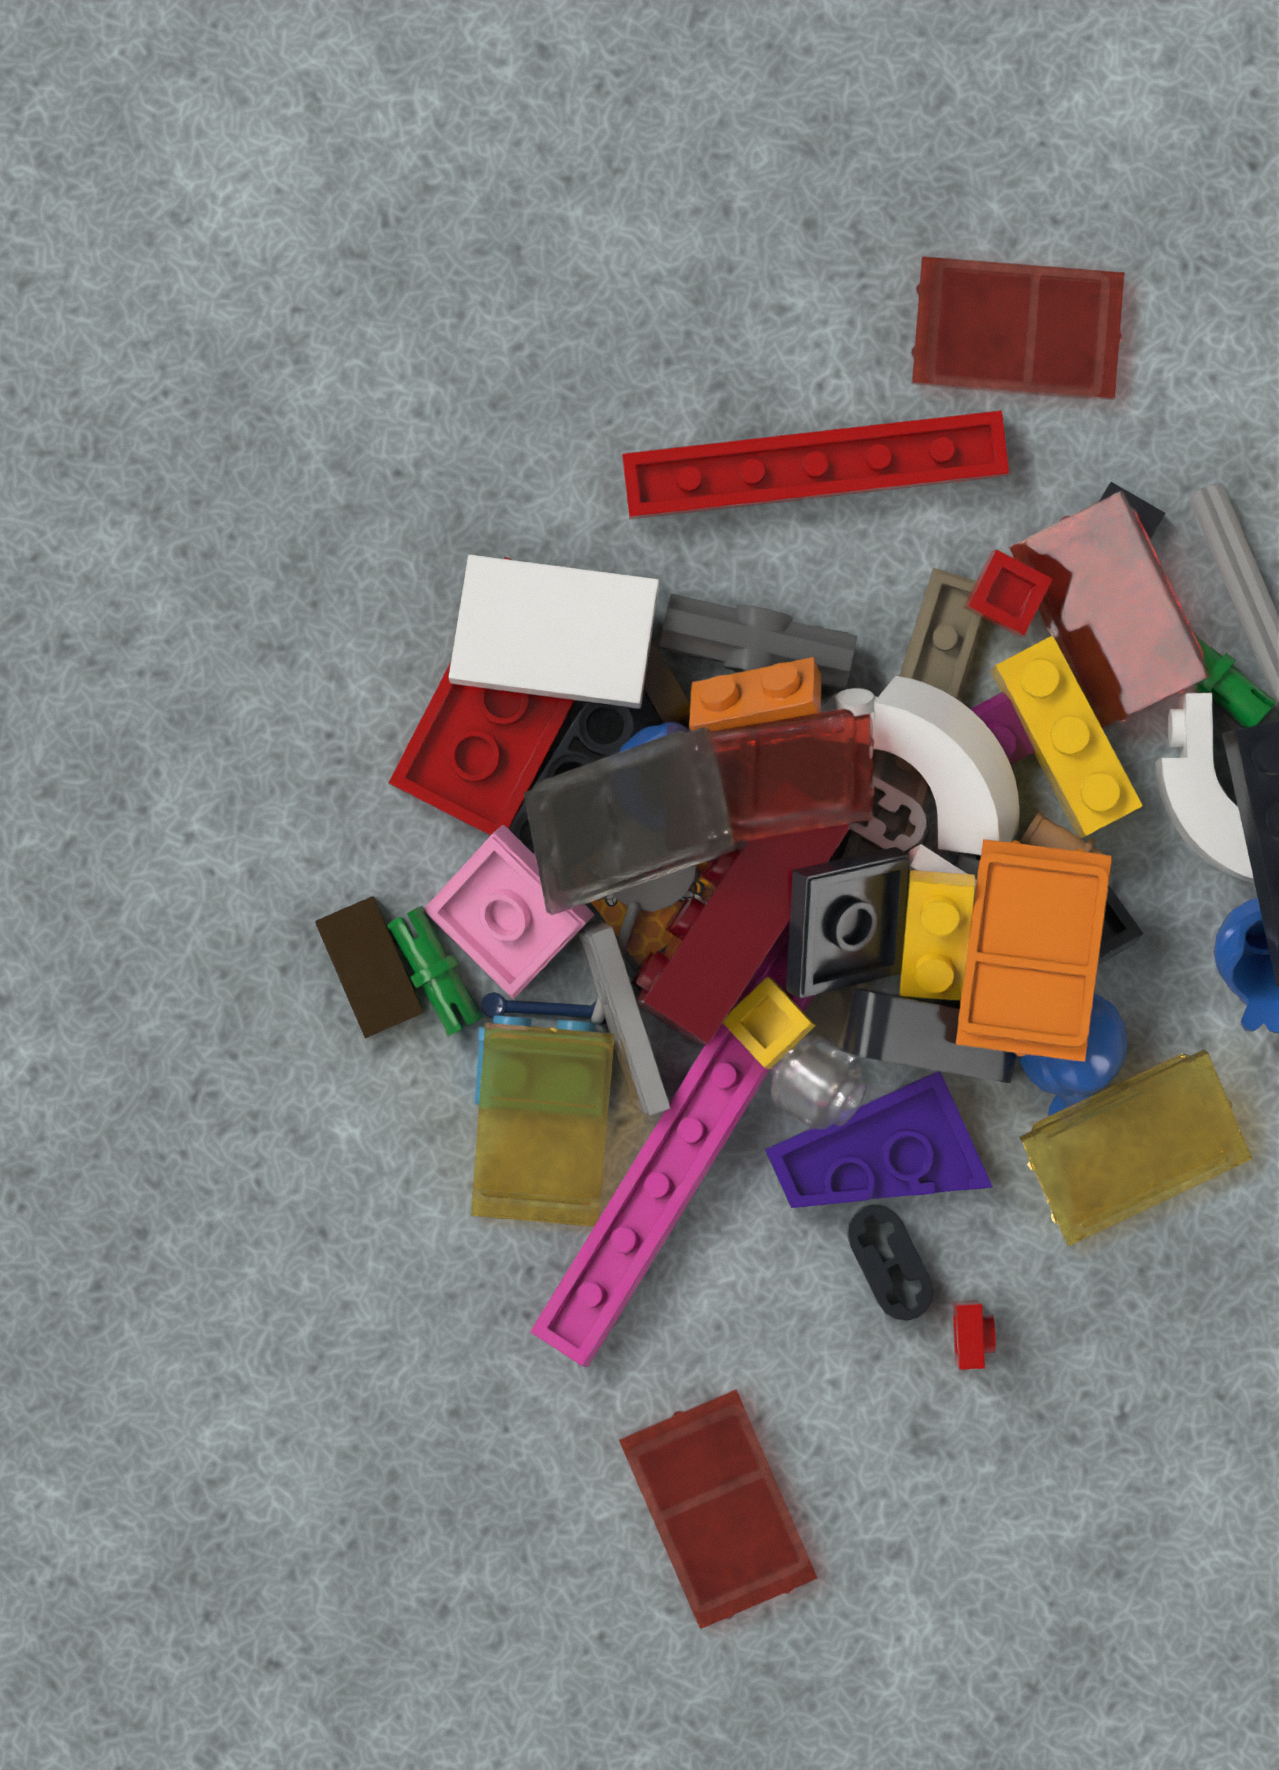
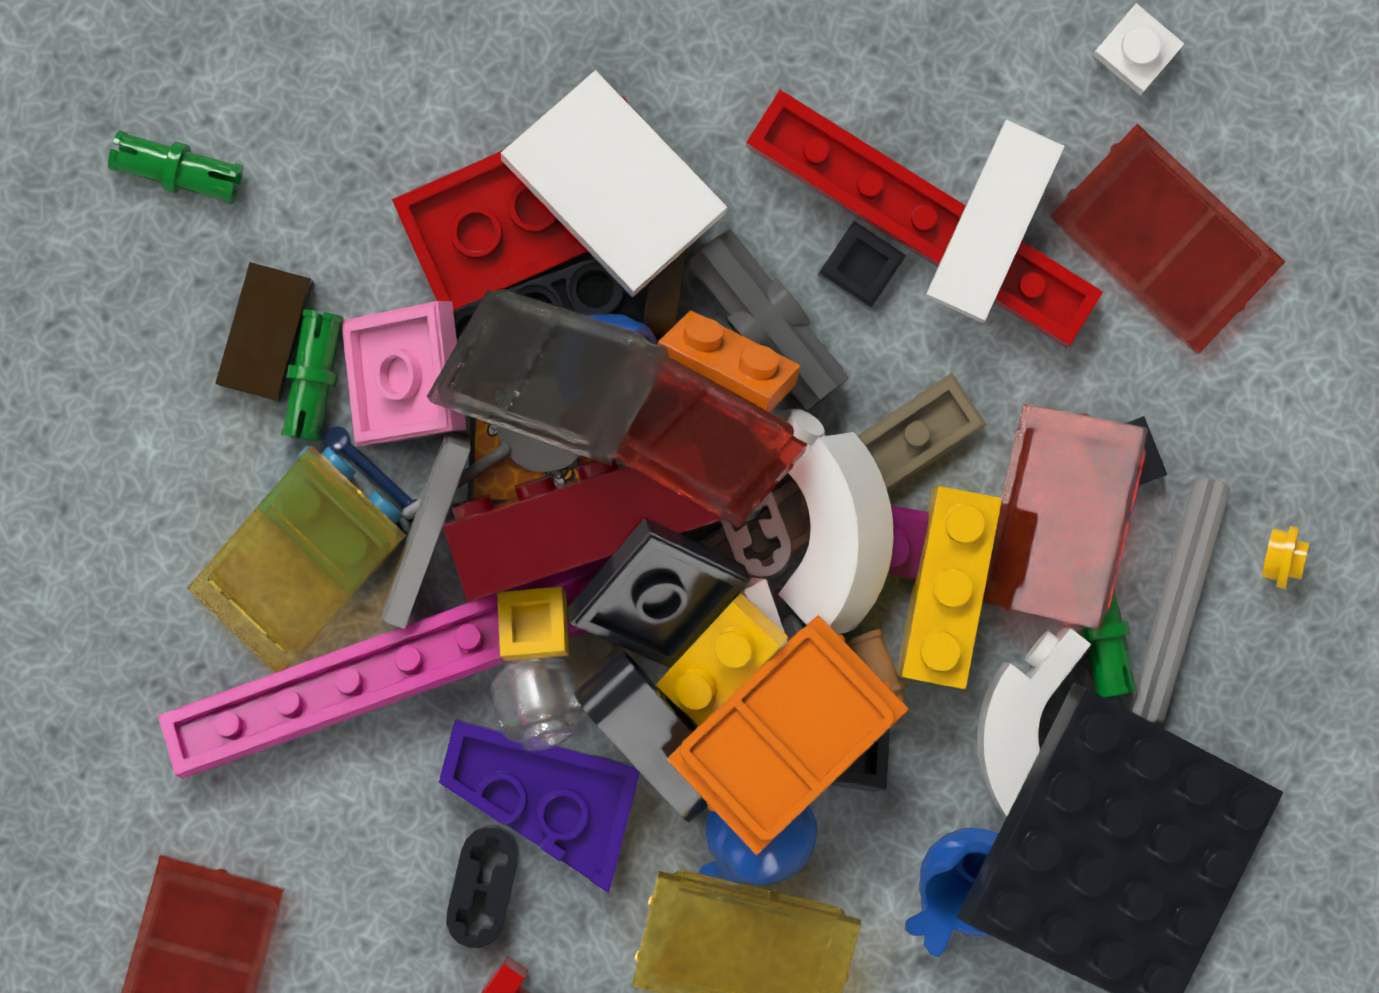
camera: 30 degrees right, 0 degrees up
(195, 893) = (175, 167): none -> green pin
(795, 539) = (861, 265): none -> black tile
(873, 423) = (994, 221): none -> white tile
(875, 196) = (1138, 49): none -> white plate
(1008, 593) = (993, 438): red plate -> none

